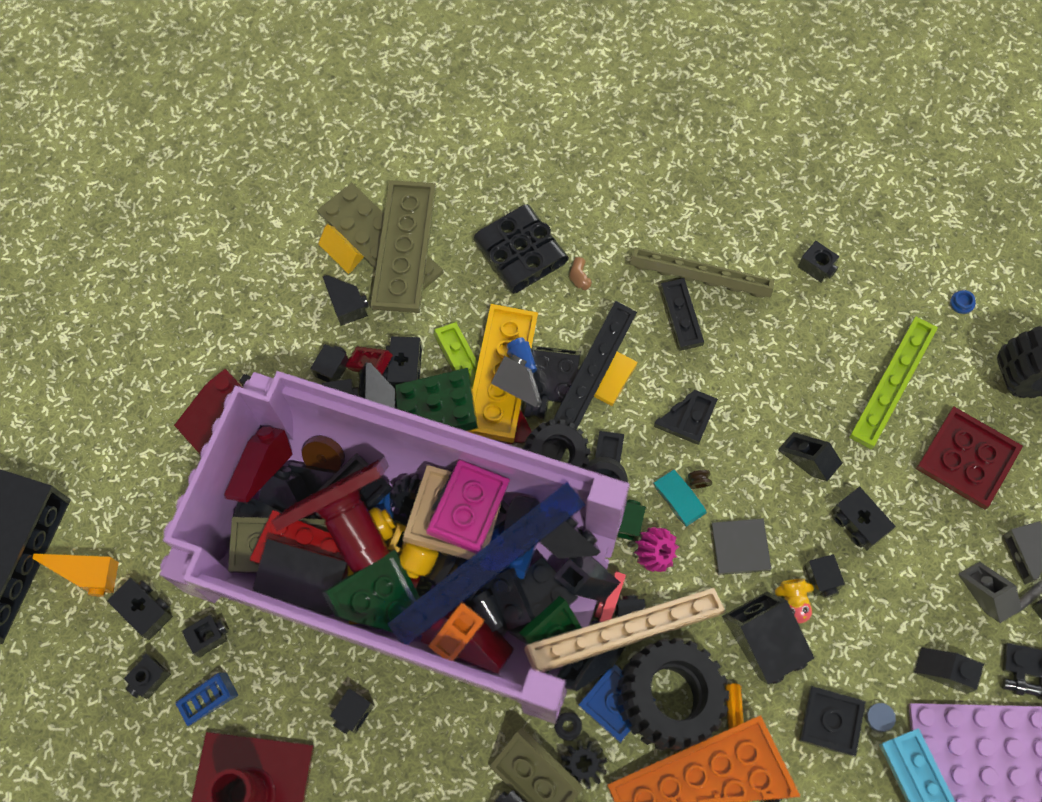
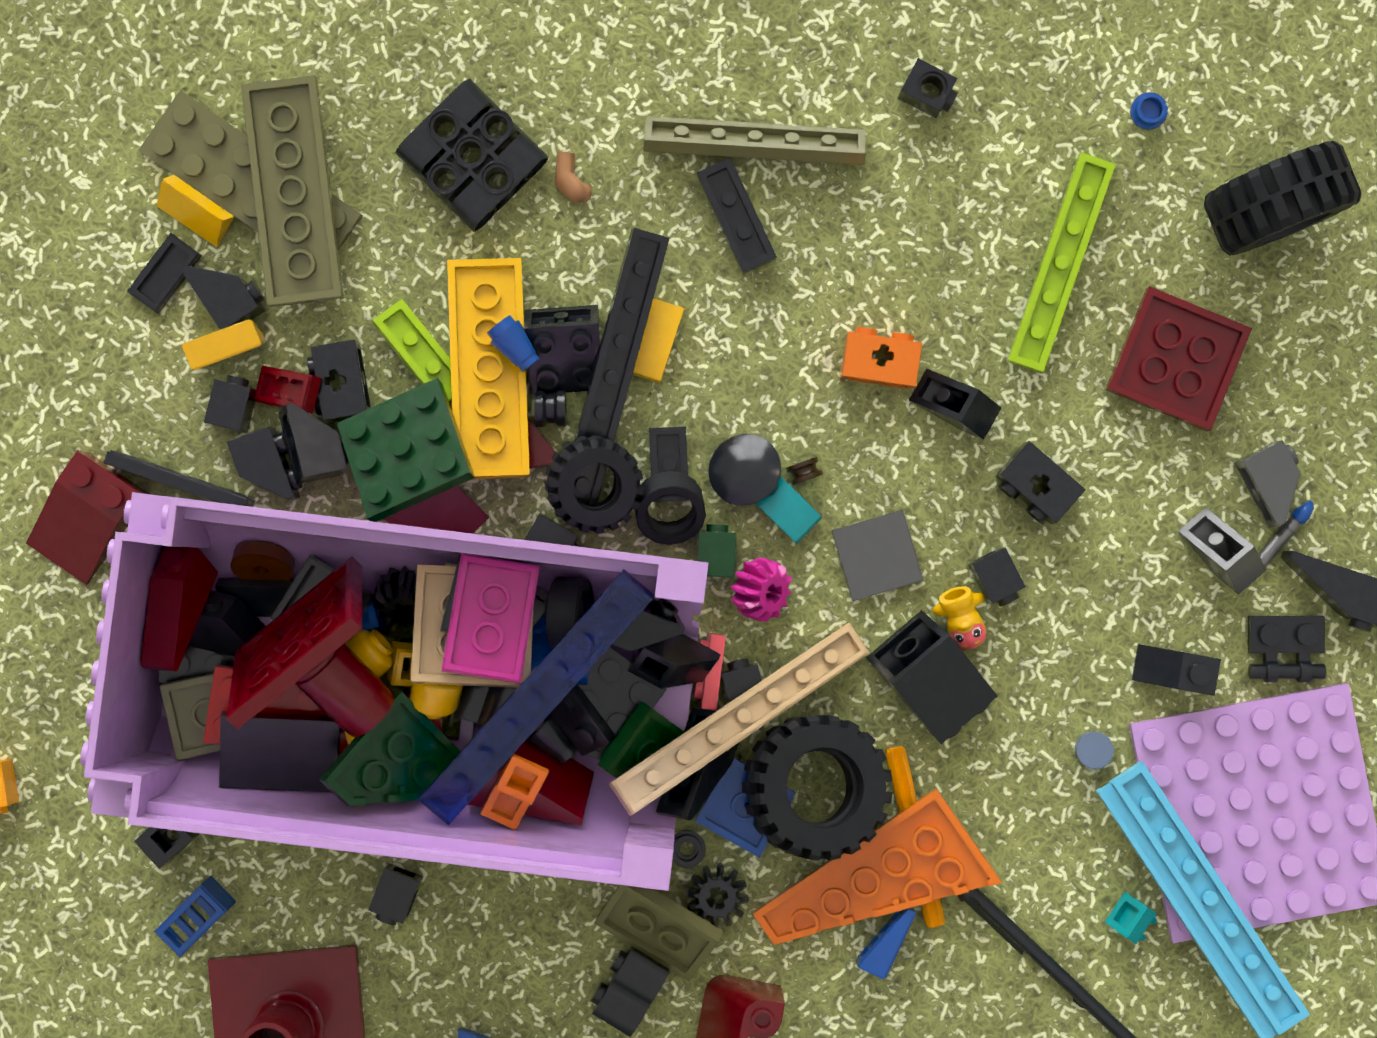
camera: 15 degrees left, 20 degrees up
(127, 602) = (45, 819): black brick -> none
(155, 677) = (113, 899): black brick -> none
(310, 282) = (163, 274): none -> black tile
(336, 326) = (223, 344): none -> yellow slope
(517, 380) = (516, 389): dark grey slope -> none
(659, 470) = (745, 470): none -> black dish
(689, 417) = (774, 378): black wing -> none
(772, 427) = (898, 372): none -> orange brick
(832, 721) = (1031, 769): black plate -> none

